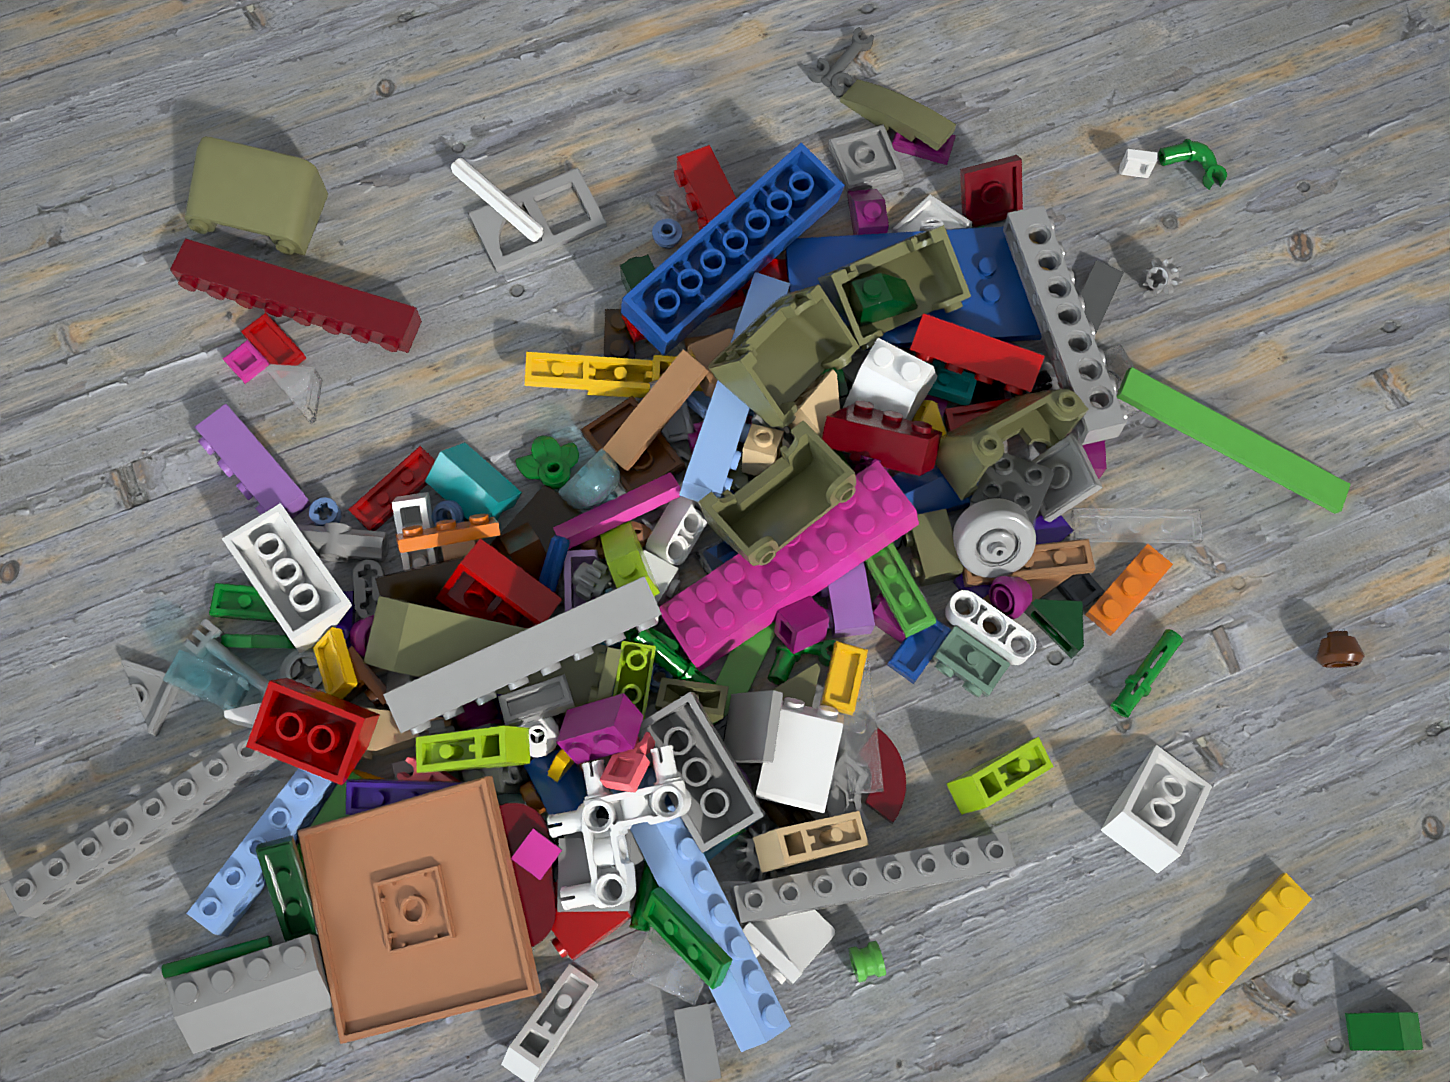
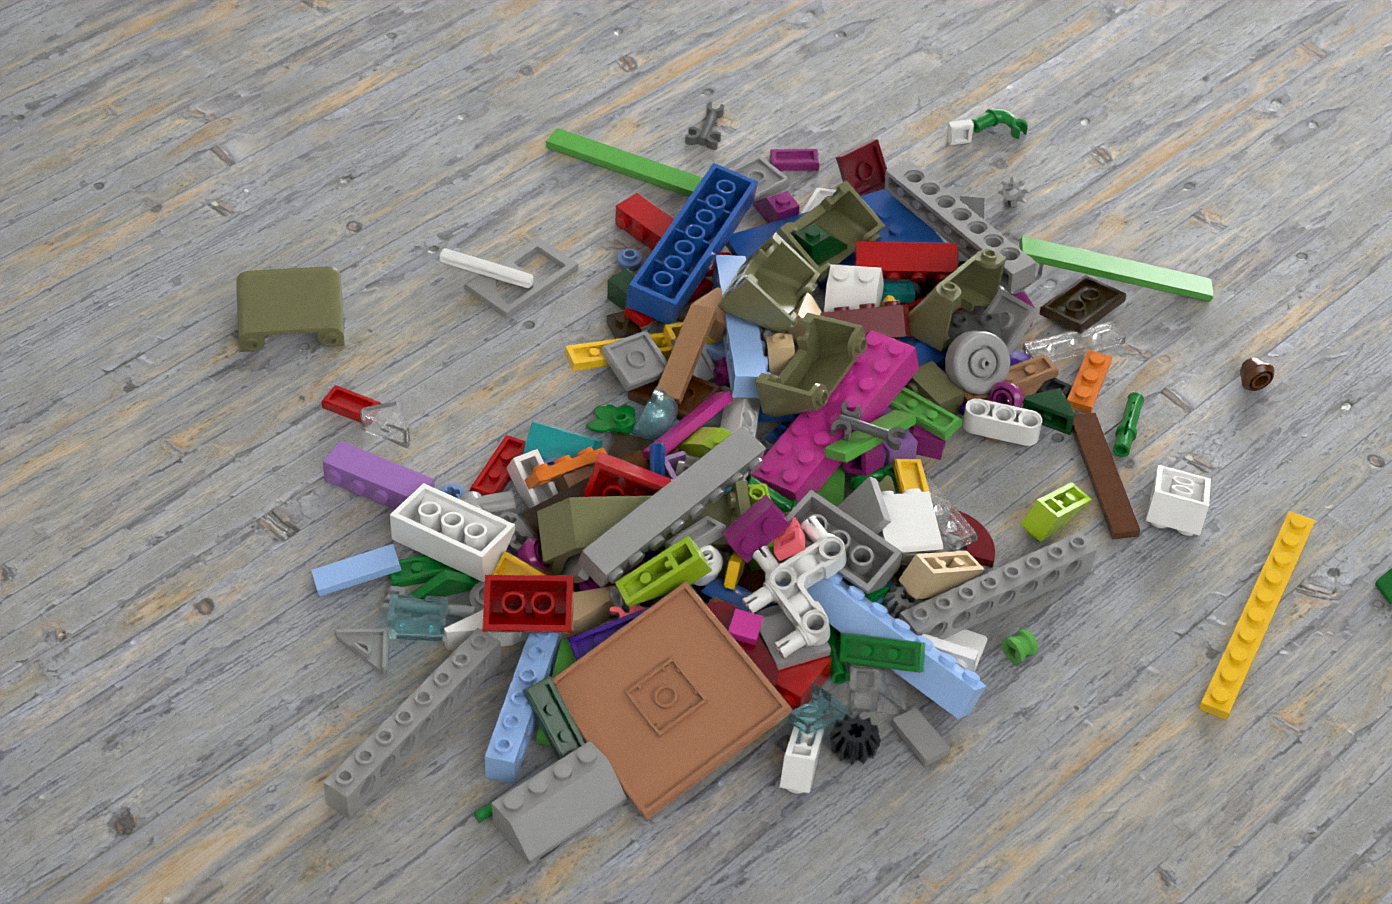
camera: 20 degrees left, 25 degrees down
(177, 584) = (356, 570): none -> light blue tile
(246, 361) = (334, 421): dark pink tile -> none
(296, 296) = (355, 366): dark red brick -> none
(592, 976) = (819, 713): none -> clear light blue slope
(599, 395) = (635, 360): none -> light grey tile
(608, 1017) = (855, 739): none -> black gear
(725, 88) = (623, 162): none -> bright green tile
(789, 591) = (850, 420): none -> dark grey bar
(813, 610) = (862, 442): none -> bright green tile
(899, 113) = (767, 143): olive slope -> none
(918, 651) = (955, 457): blue tile -> none
(970, 662) = (998, 451): sand green bracket -> none
(1083, 739) = (1104, 477): none -> reddish brown tile
(1171, 473) = (1082, 304): none -> dark brown tile

